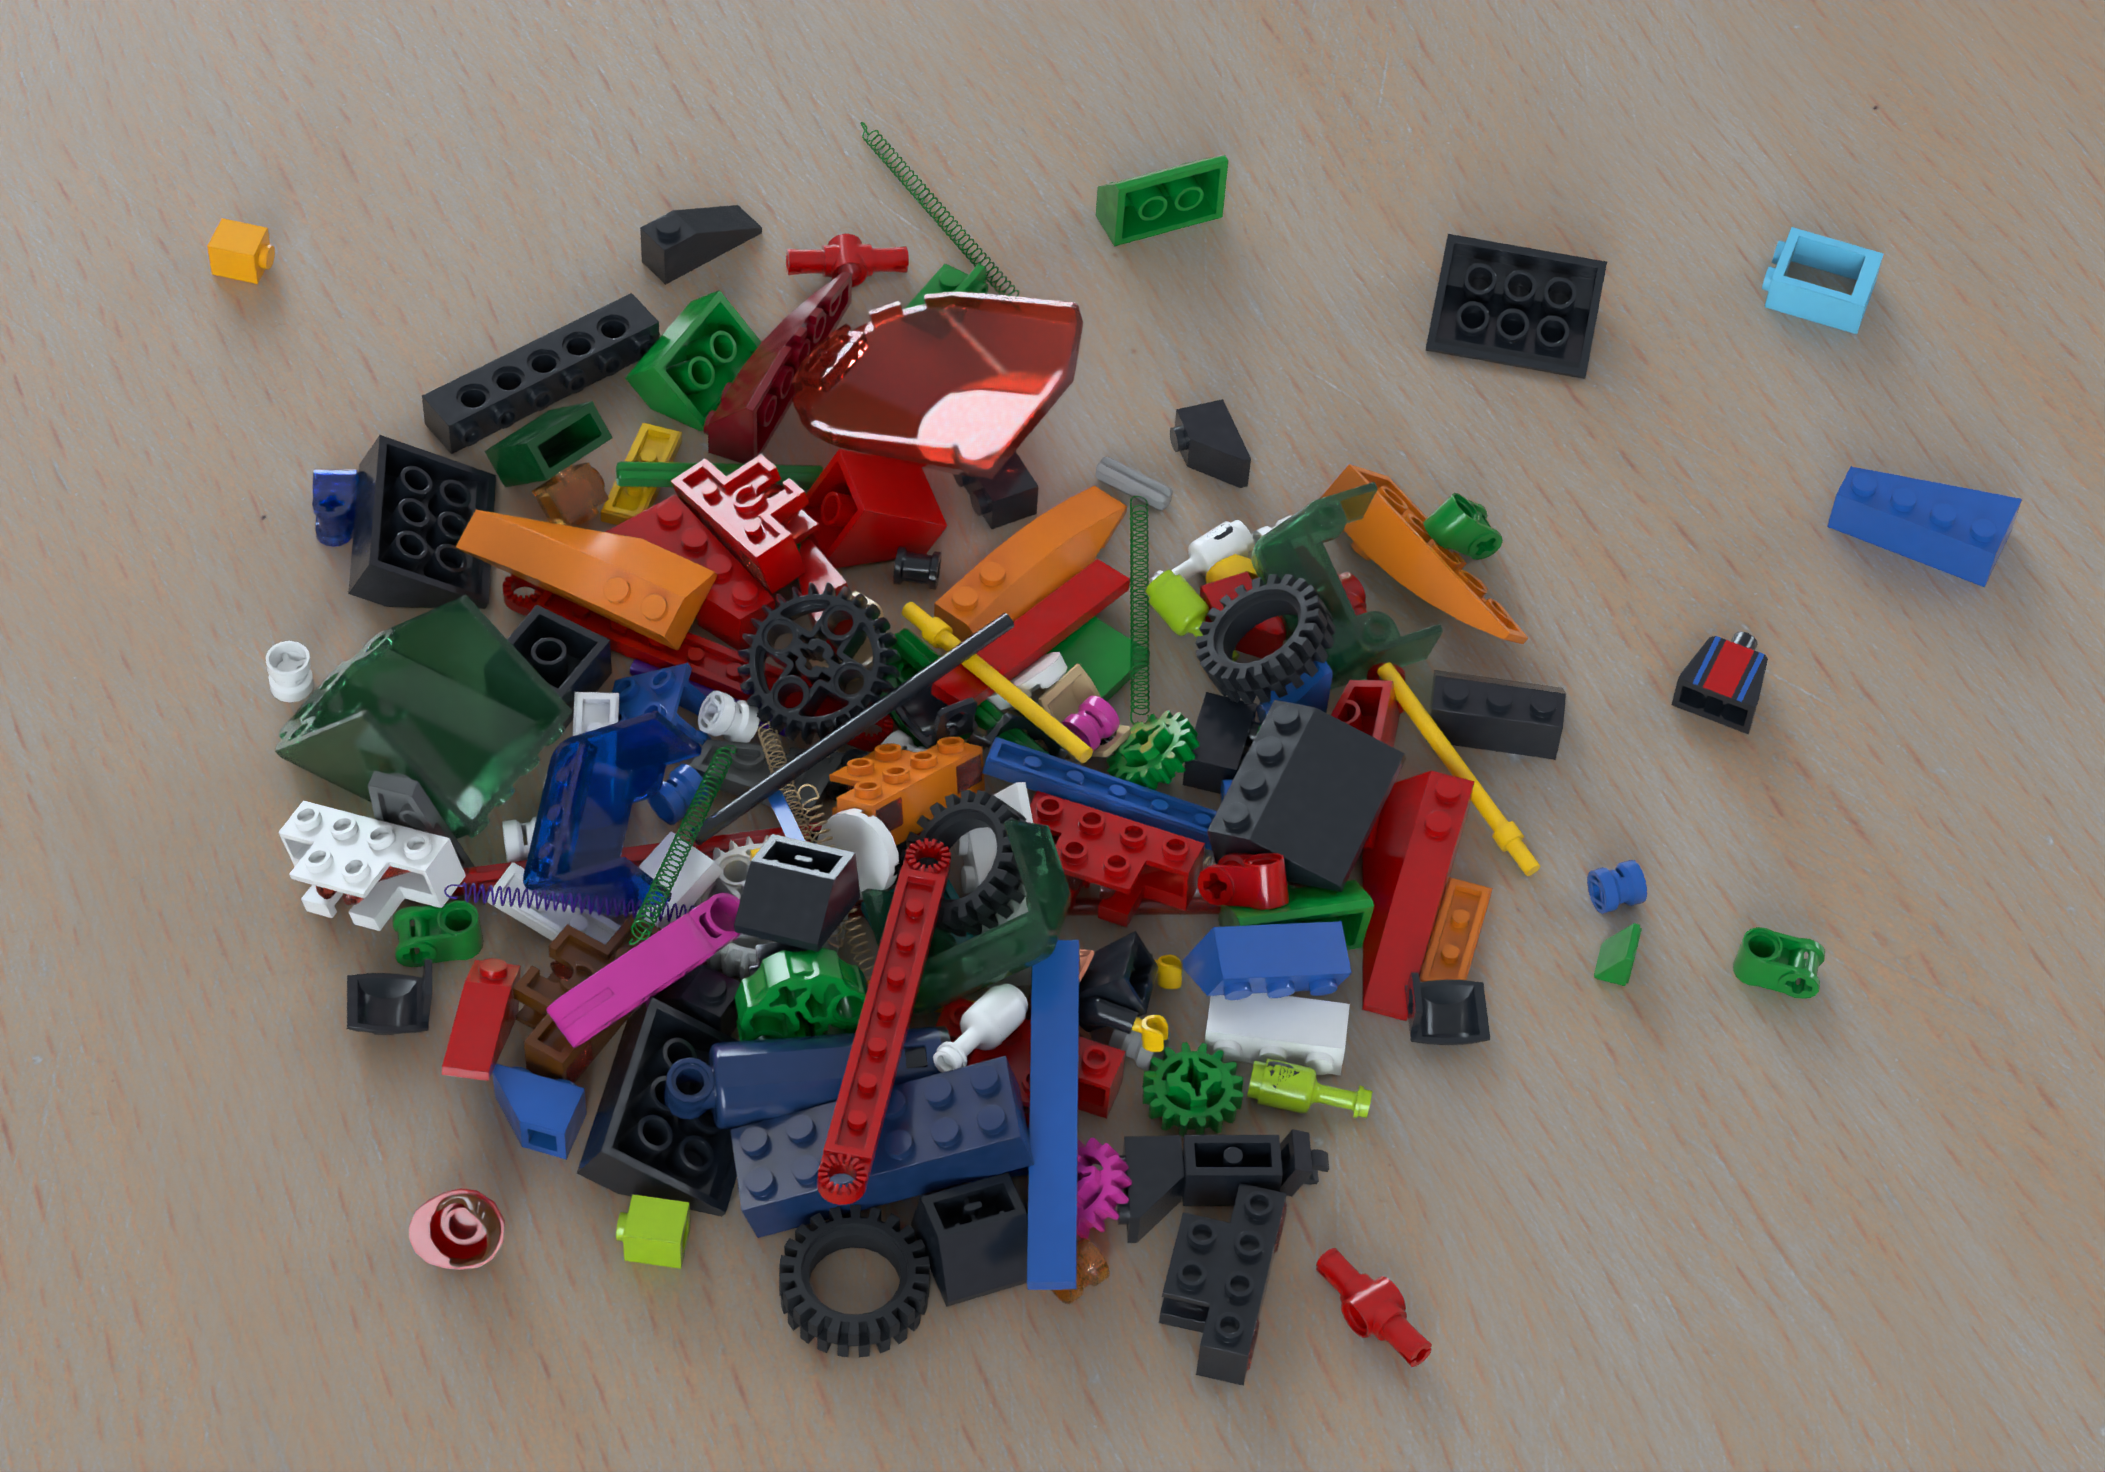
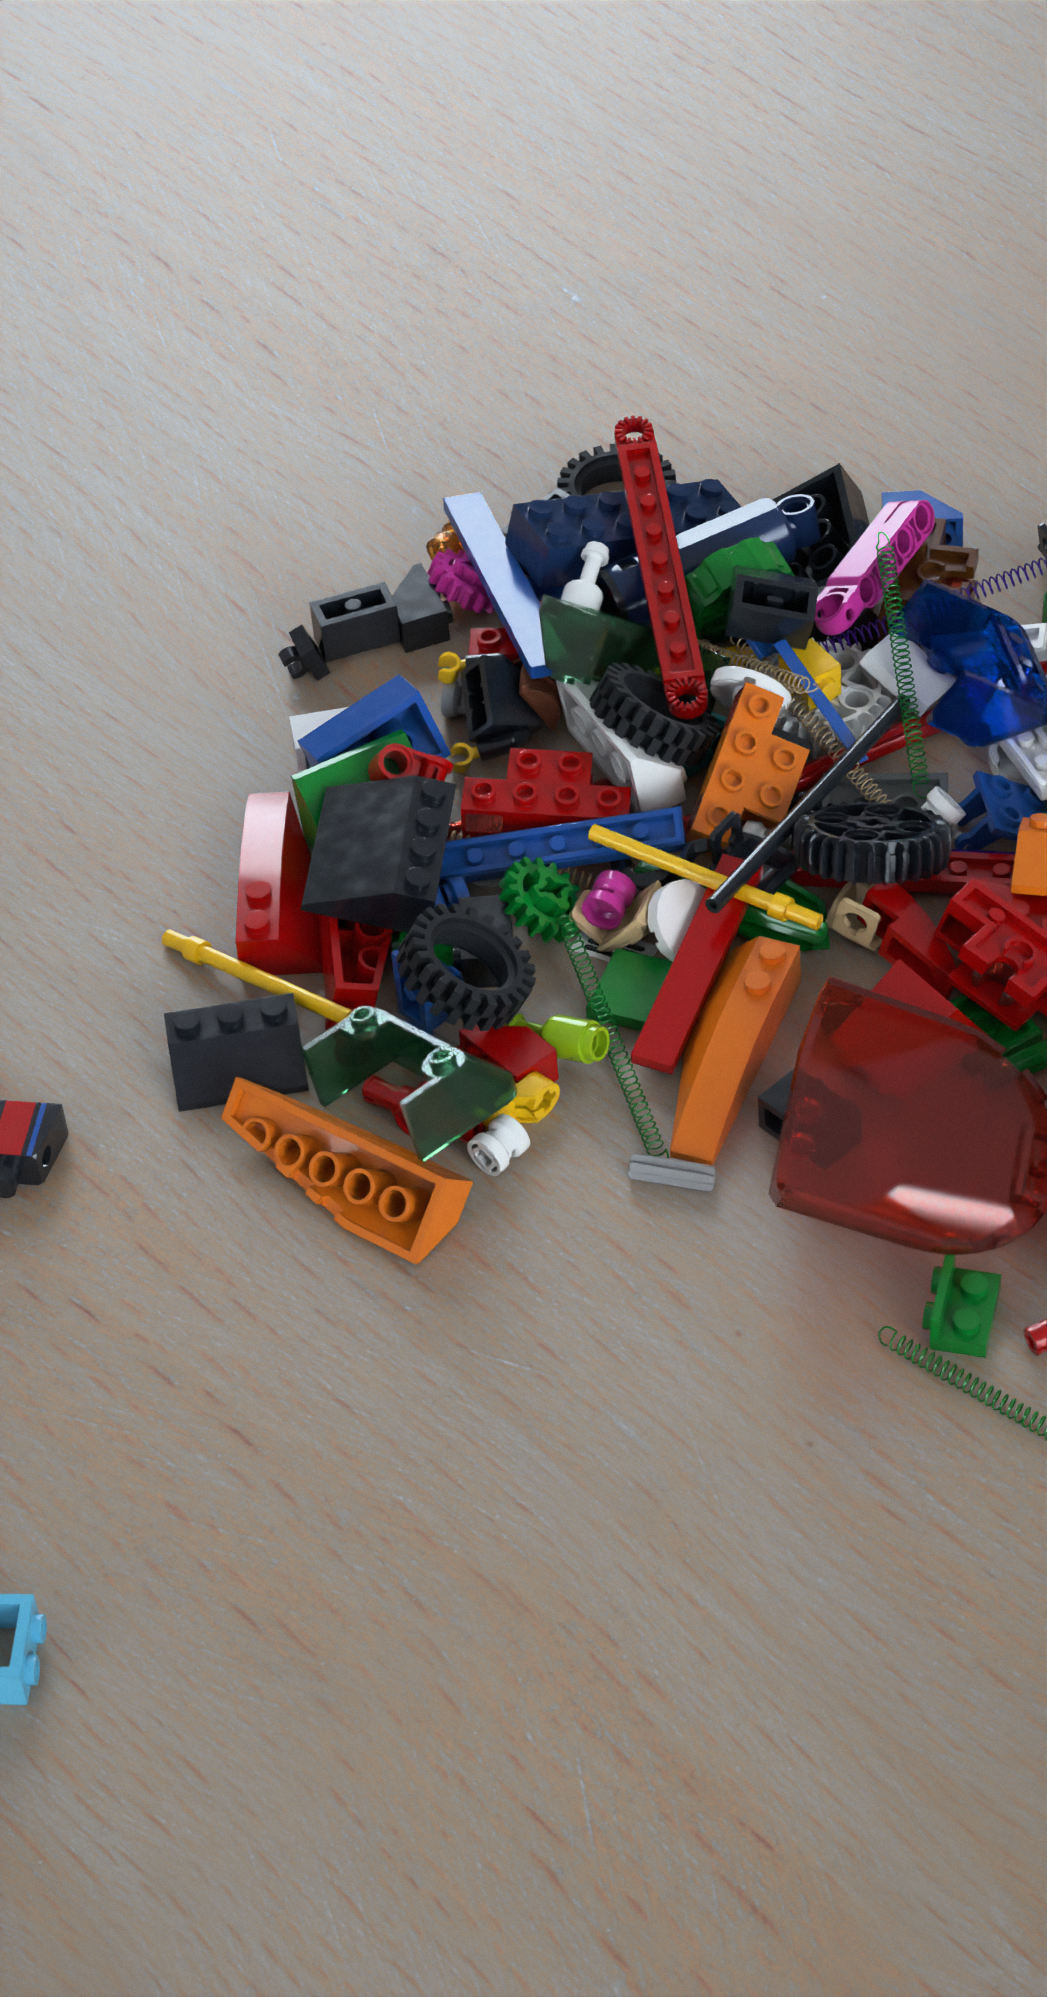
camera: 170 degrees right, 5 degrees down
(457, 1229) = (920, 436): piece -> none
(482, 1019) = (991, 532): red slope -> none
(654, 1231) = (779, 473): lime brick -> none
(677, 794) = (949, 756): blue wheel -> none
(1163, 200) = (779, 1484): green slope -> none
(1188, 1090) = (414, 665): green gear -> none
(1211, 442) = (607, 1226): black slope -> none
(1212, 547) = (565, 1107): white piece -> none
(1222, 1279) = (334, 552): black piece -> none
(1297, 1088) = (318, 699): lime piece -> none
(1373, 1307) = (216, 587): red pin -> none
(1446, 1011) = (216, 787): black piece -> none
(1456, 931) = (221, 863): orange tile -> none
(1463, 528) = (315, 1201): green piece -> none
(1516, 306) = (327, 1498): black slope -> none
(1617, 886) = (86, 930): blue wheel -> none
(1618, 956) = (73, 883): green slope -> none

